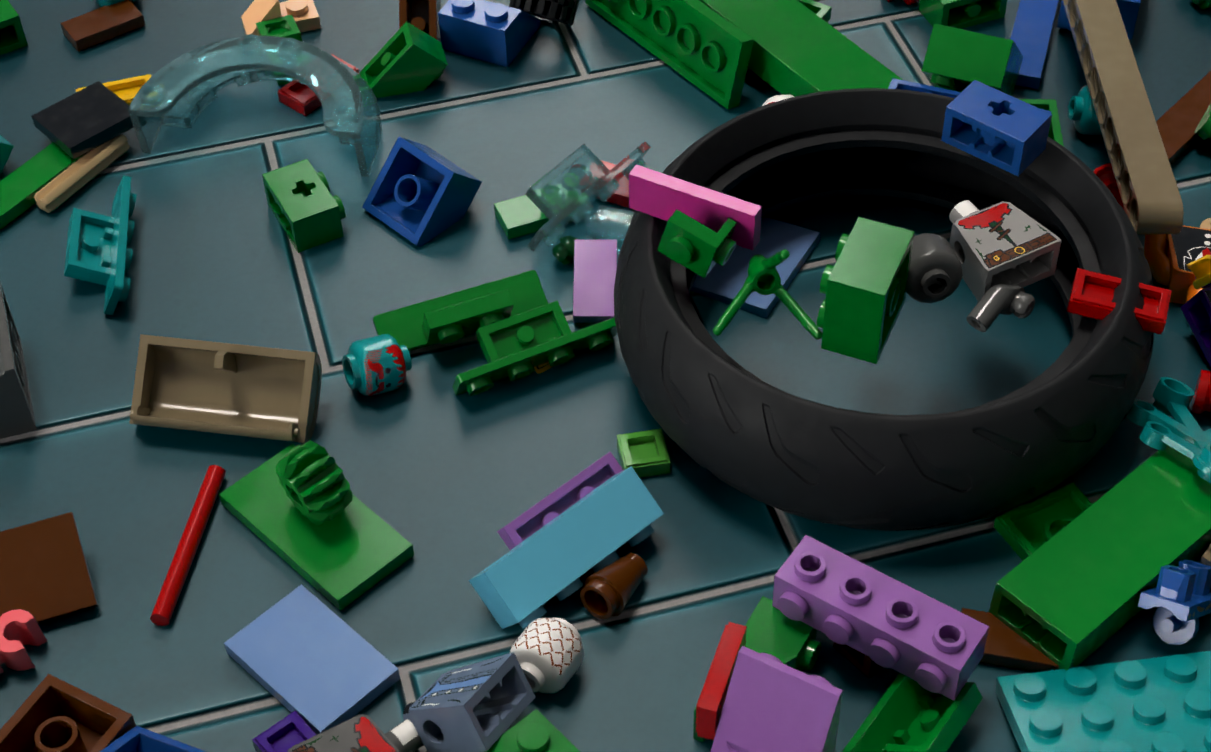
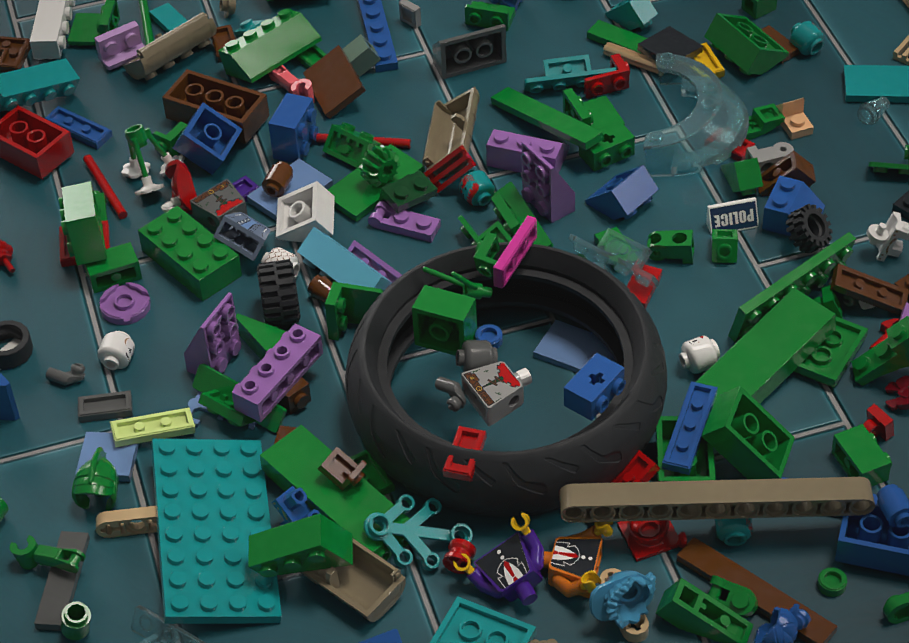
camera: 90 degrees right, 0 degrees up
(107, 44) = (744, 44): none -> green slope
(107, 180) = (609, 81): none -> red bracket
(155, 634) = (293, 128): none -> blue brick
(212, 551) = (349, 144): none -> green bracket
(220, 223) = (594, 112): none -> green bracket
(222, 265) = (547, 118): none -> green tile
(294, 297) = (505, 150): none -> medium lavender slope
(305, 659) = (277, 179): none -> reddish brown brick
(341, 388) = (435, 179): none -> red tile
(370, 33) = (769, 156): none -> light grey leg
(375, 458) = (408, 191): none -> dark green bracket
(408, 256) = (545, 186): none -> medium lavender slope
(411, 616) = (303, 210): none -> white slope
(434, 476) = (404, 222): none -> medium lavender plate
(491, 85) = (733, 215): none -> slope
(547, 89) = (724, 245): none -> green bracket
(549, 146) = (672, 245): none -> green leg
(651, 633) = (278, 292): none -> black tyre
(691, 539) = (347, 305): none -> green bracket
(718, 679) = (250, 314): red tile -> none
(1113, 503) = (342, 469): none -> reddish brown bracket
(1166, 44) = (832, 582): none -> green tile

